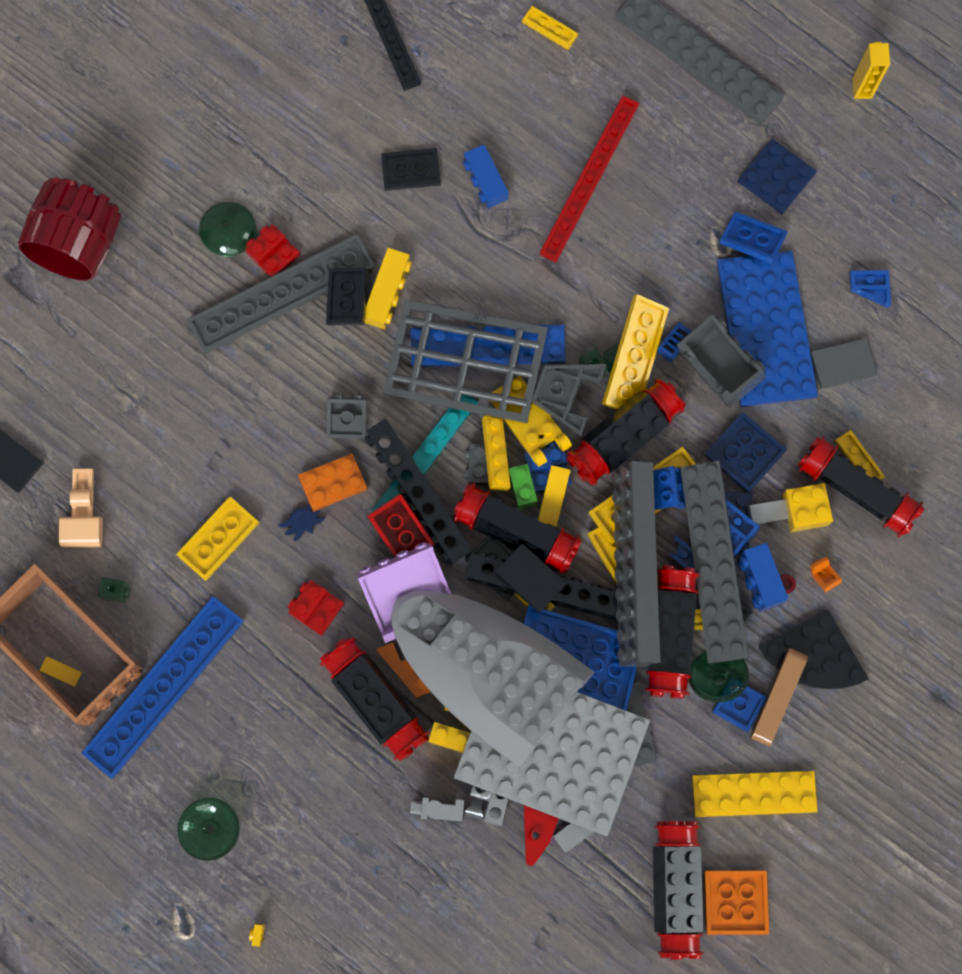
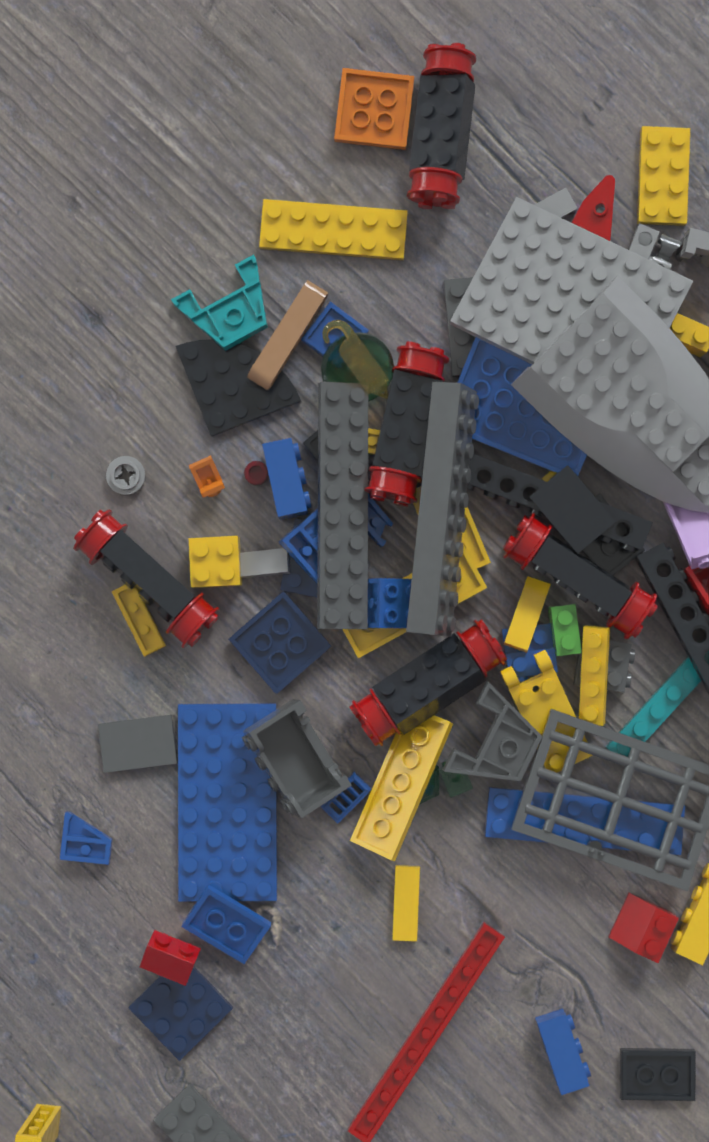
camera: 170 degrees left, 10 degrees up
(434, 271) = (643, 927): none -> red slope
(483, 874) = (663, 176): none -> yellow plate
(617, 269) = (406, 903): none -> yellow tile
(719, 678) = (359, 359): none -> clear yellow plate
(793, 207) = (170, 957): none -> red slope
(824, 709) = (233, 316): none -> teal wing
(891, 560) = (115, 471): none -> light grey gear

